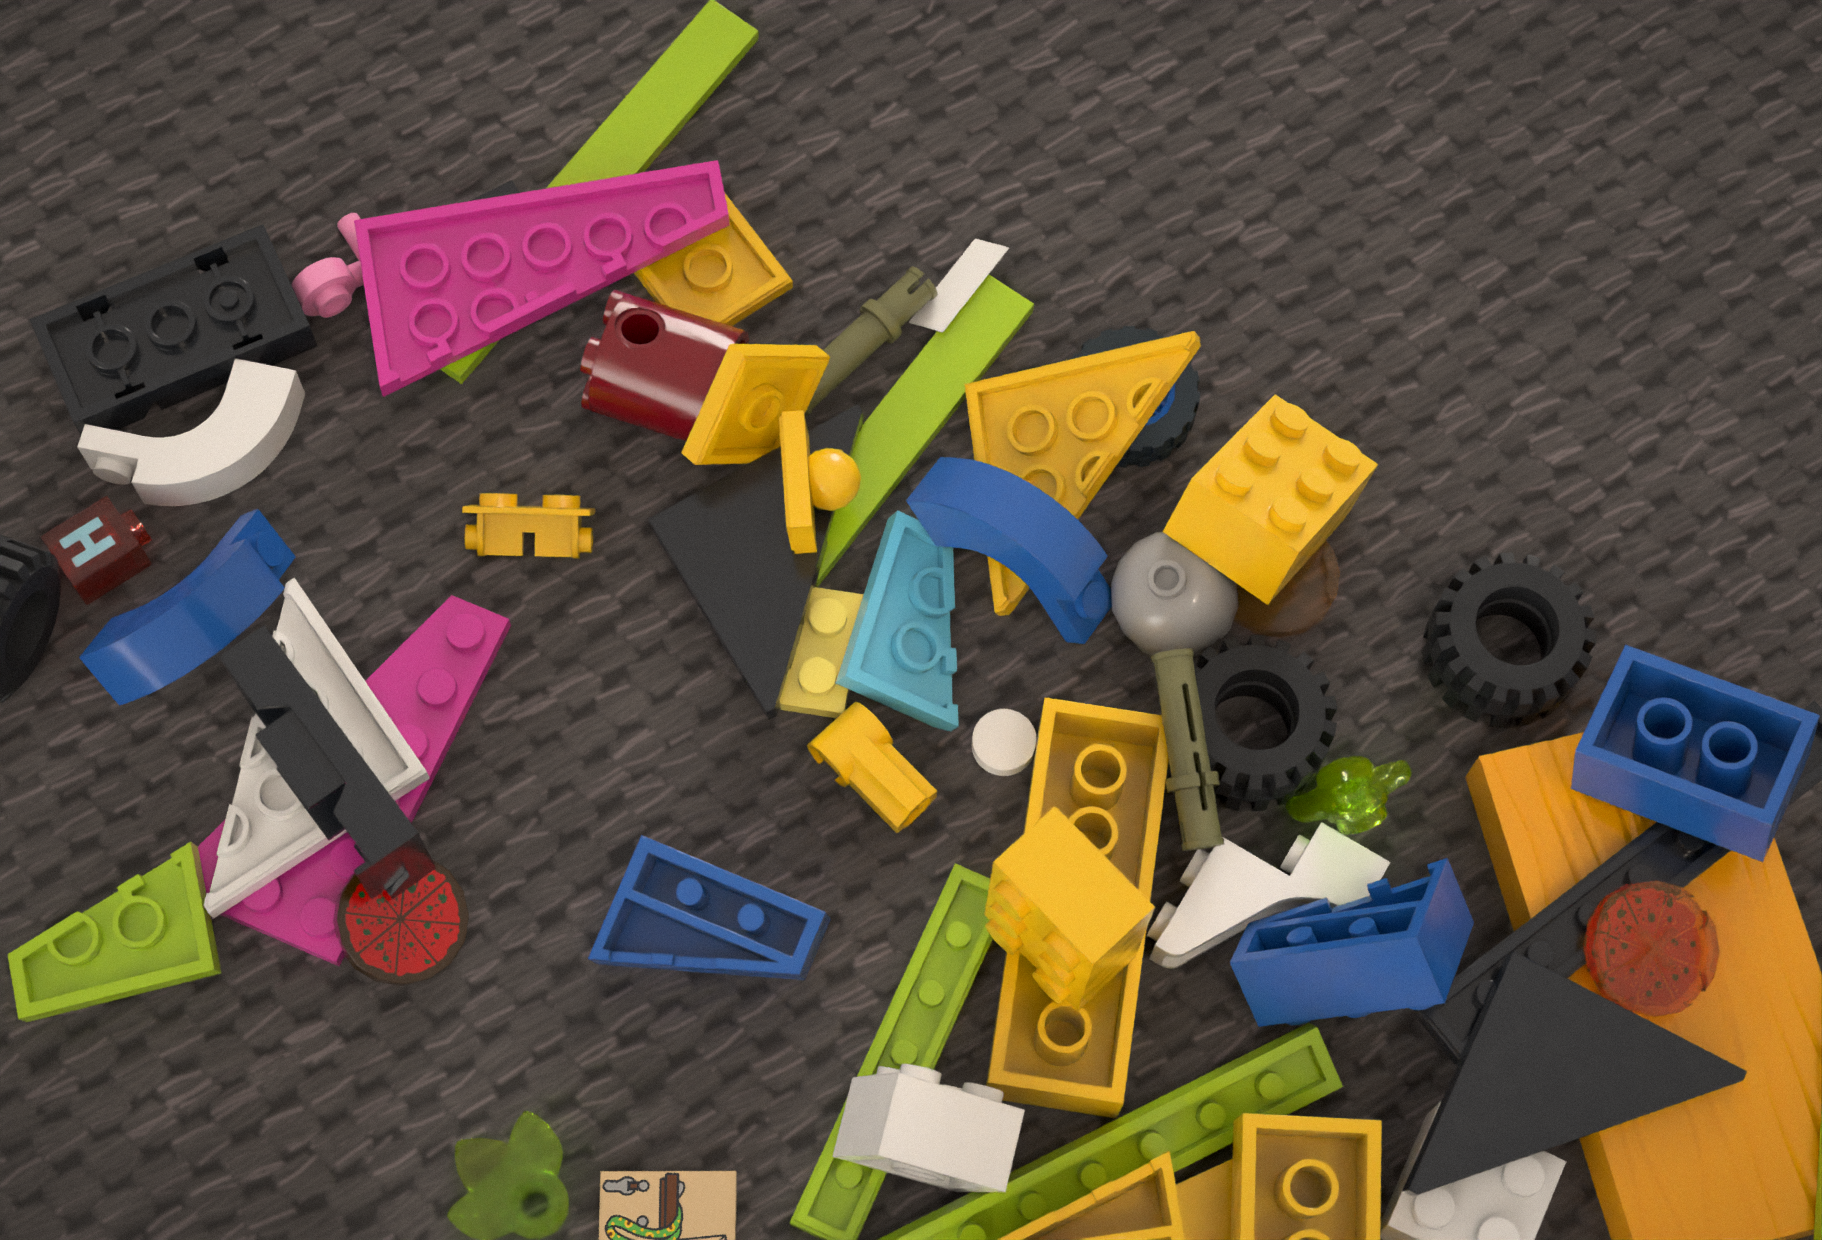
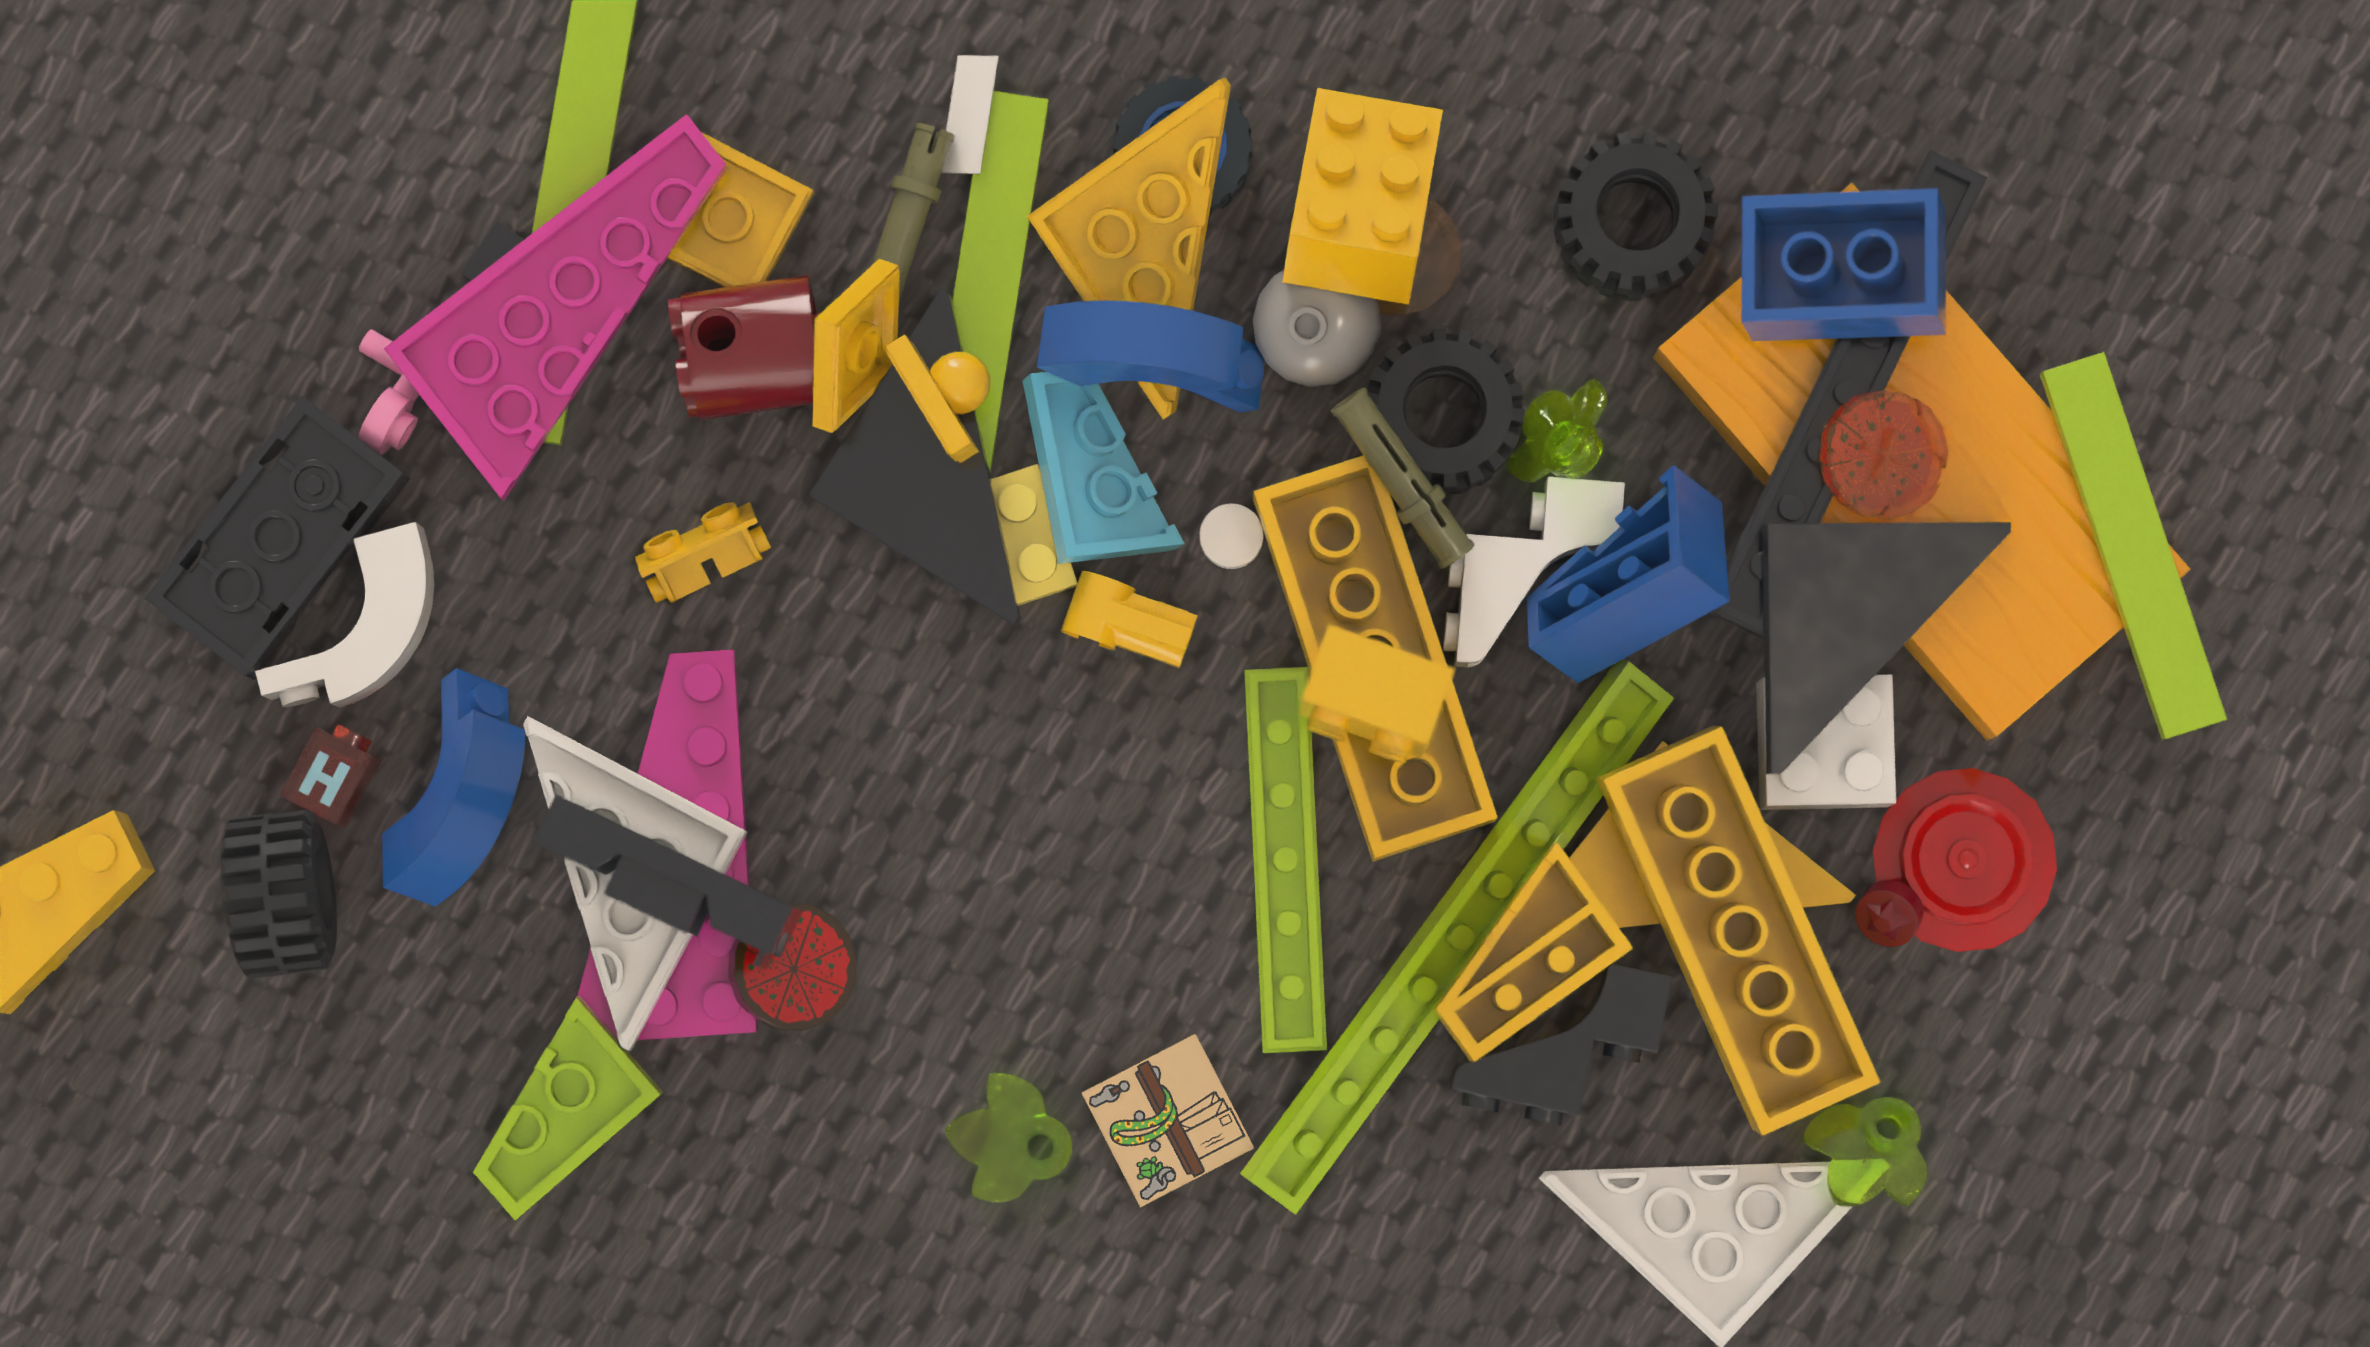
camera: 20 degrees left, 15 degrees up
(705, 920) = (1059, 834): blue wedge -> none
(930, 1130) = (1345, 922): white brick -> none

